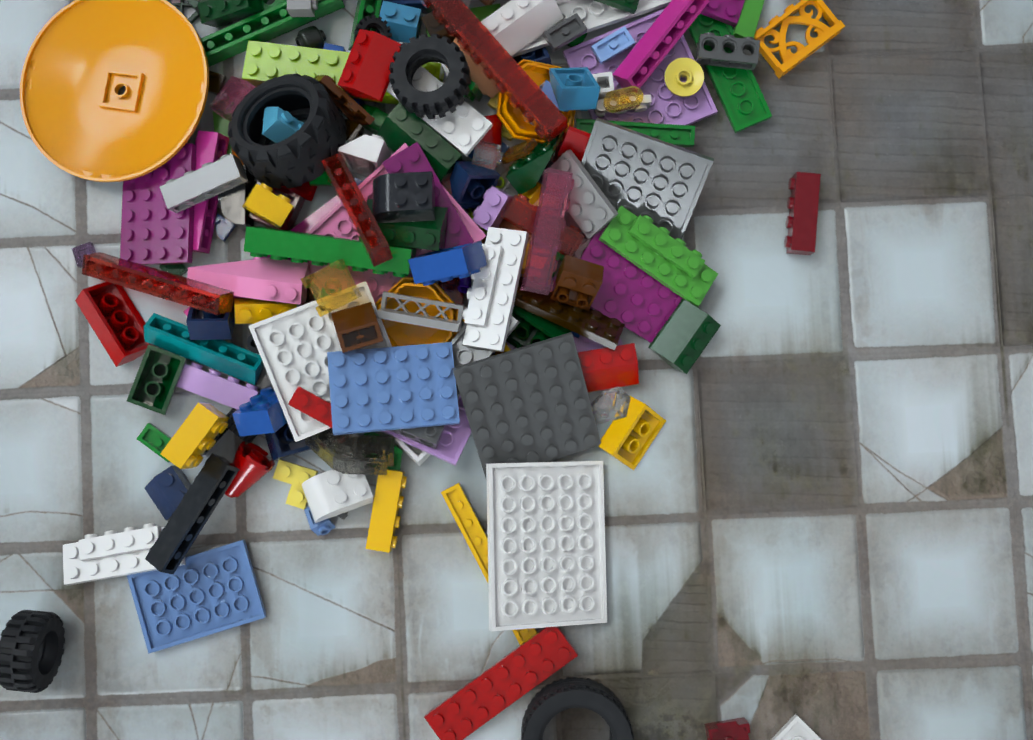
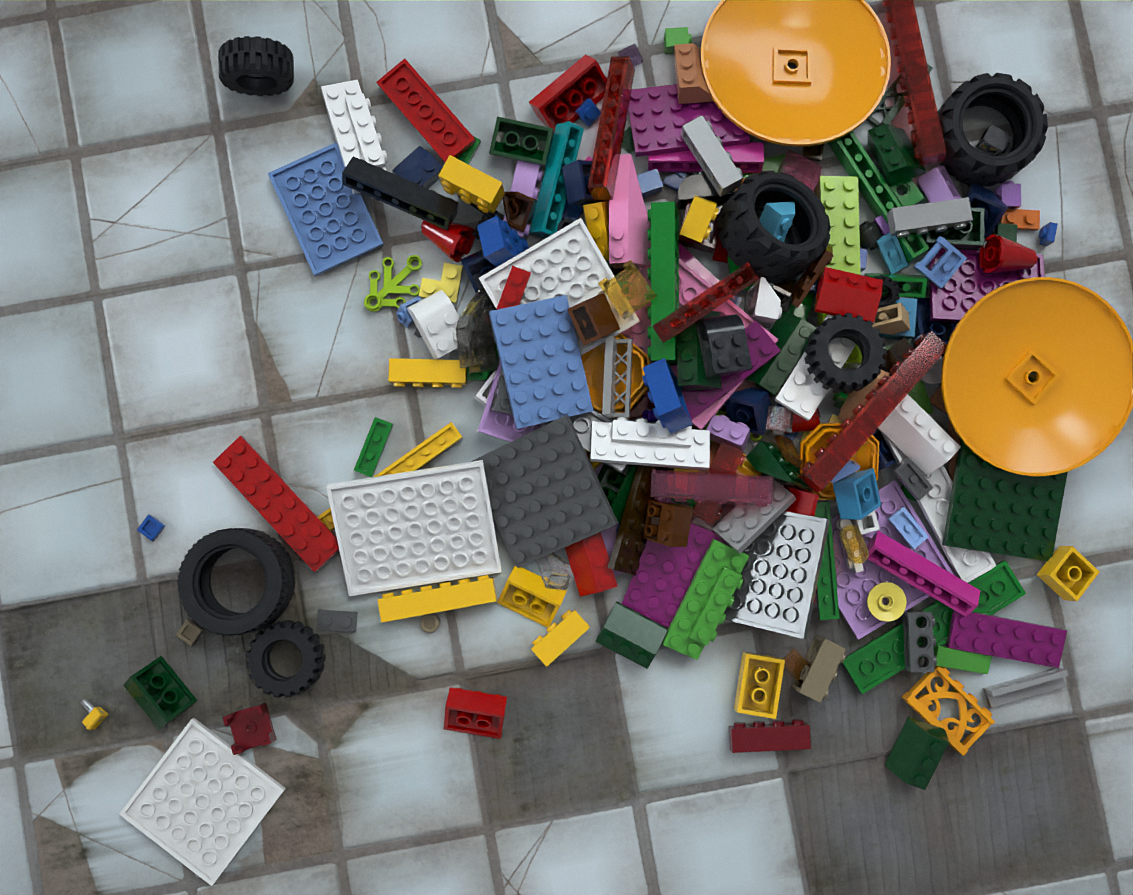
camera: 80 degrees right, 0 degrees up
(75, 204) = (676, 36): none -> bright green brick
(108, 476) = (425, 111): none -> red plate
(114, 196) = (689, 75): none -> nougat slope
(137, 306) = (588, 112): none -> blue plate
(221, 252) = (650, 183): none -> medium blue brick
(228, 392) = (518, 209): none -> reddish brown slope
(239, 337) = (571, 211): none -> blue tile
(288, 537) = (390, 284): none -> lime plant
(302, 23) = (882, 225): none -> medium lavender tile
(332, 19) = (892, 253): none -> medium azure plate
(400, 26) = (892, 319): none -> tan slope
(456, 577) = (373, 447): none -> green plate
(622, 531) = (437, 599): none -> yellow brick
(630, 638) = (337, 620): none -> dark grey plate
(645, 542) = (430, 622): none -> dark tan tile
(675, 721) = (260, 663): none -> black tyre
(676, 410) = (559, 636): none -> yellow brick
(739, 173) = (795, 663): none -> clear orange tile
(742, 154) = (823, 661): none -> dark tan brick
(742, 507) = (475, 712): none -> red slope
(750, 215) = (759, 685): none -> yellow brick
(836, 69) = (917, 752): none -> dark green slope

